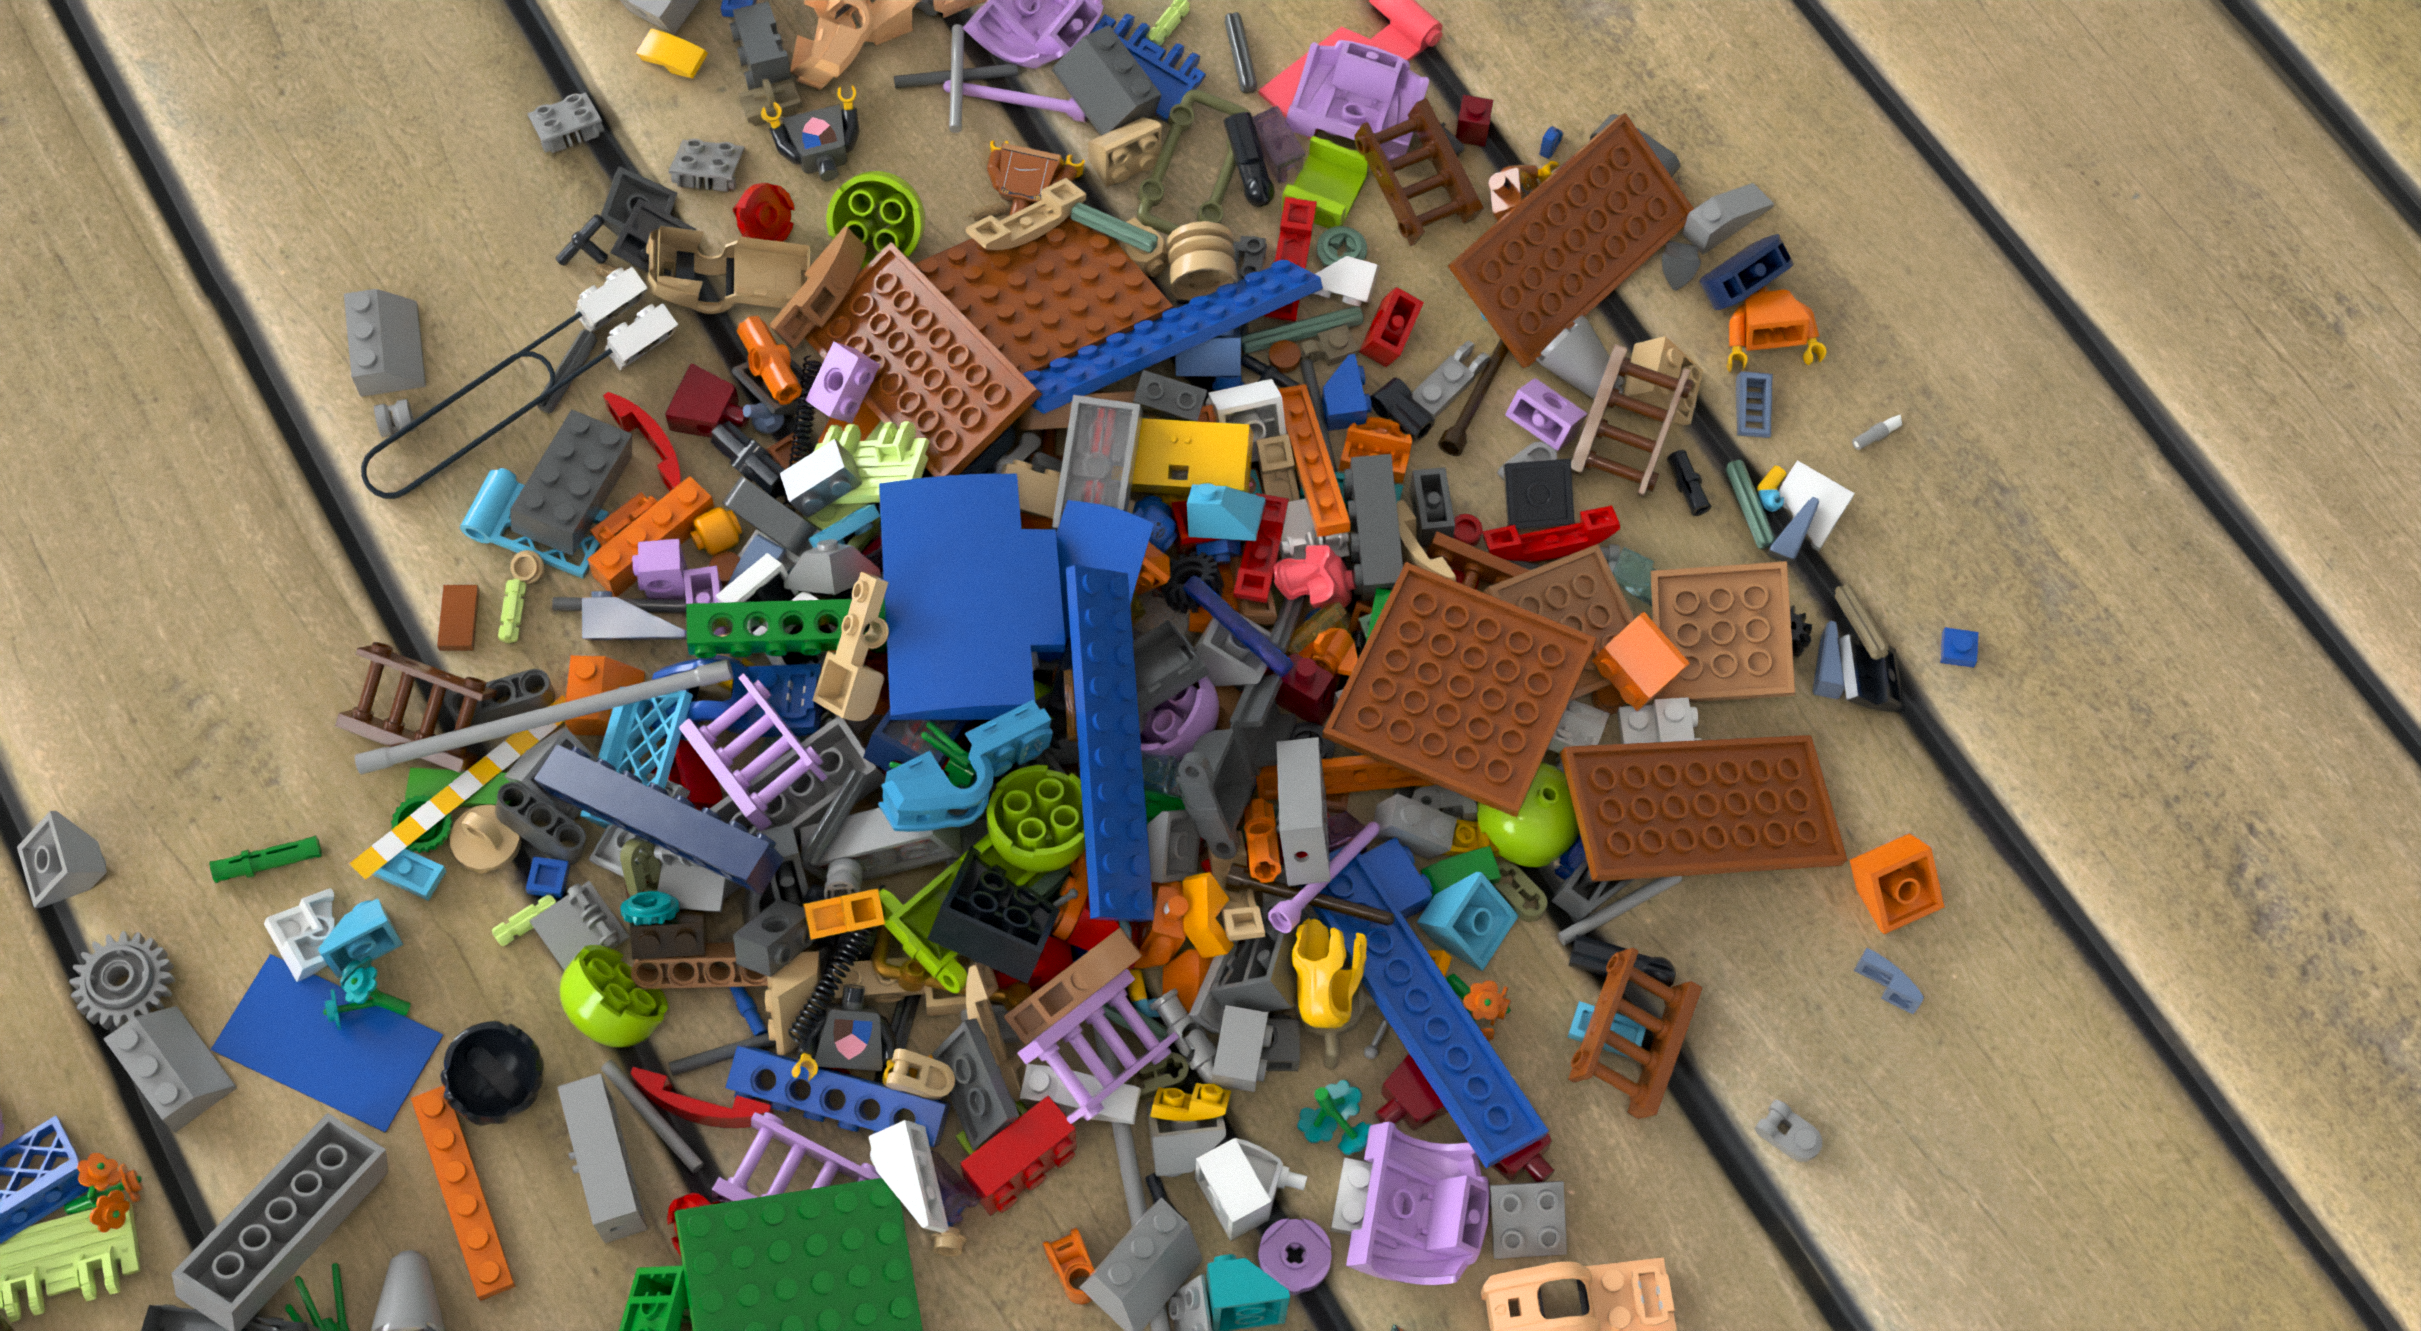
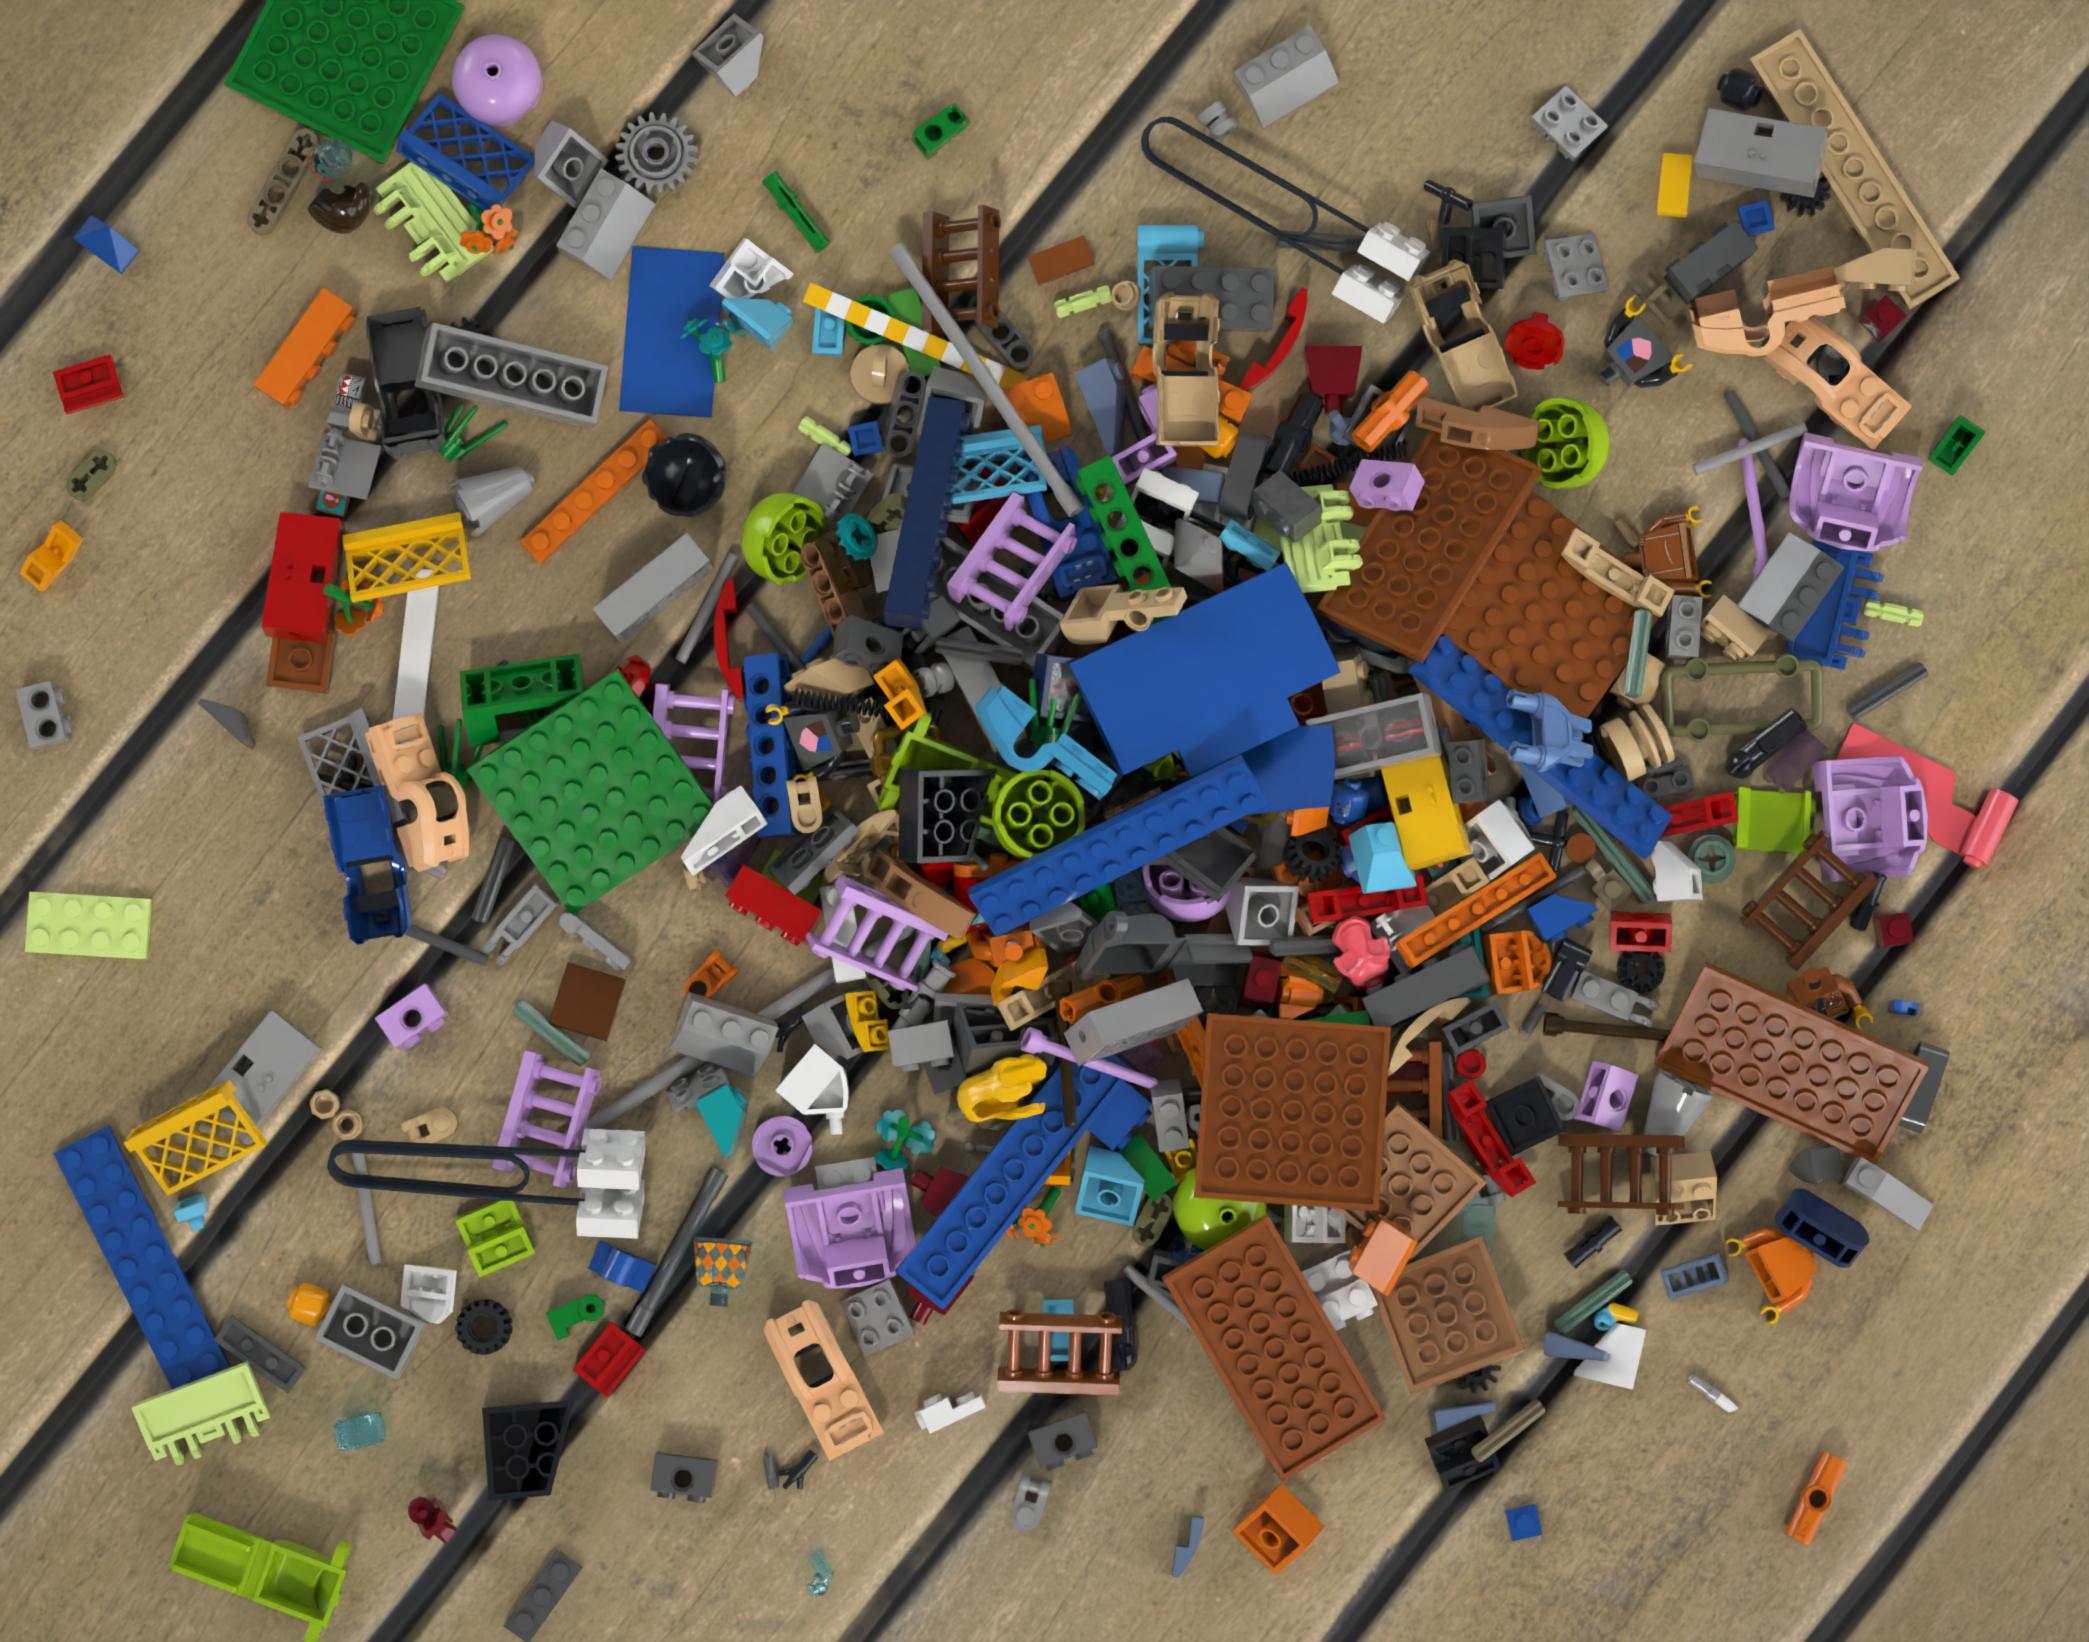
camera: 70 degrees right, 20 degrees up
(77, 1078) = (566, 163): none -> light grey slope
(258, 684) = (940, 130): none -> green leg
(665, 519) = (1186, 398): none -> tan piece
(1107, 189) = (1683, 627): none -> light grey brick
(1160, 310) = (1554, 732): none -> medium blue connector
(1238, 626) = (1277, 908): clear blue axle -> none
(1425, 358) = (1644, 983): none -> black gear
(1440, 457) = (1534, 1018): none -> light grey piece
(1663, 1181) = (940, 1411): none -> white plate
(1723, 1087) = (1044, 1440): none -> dark grey brick
(2026, 383) = (1825, 1479): none -> orange piece

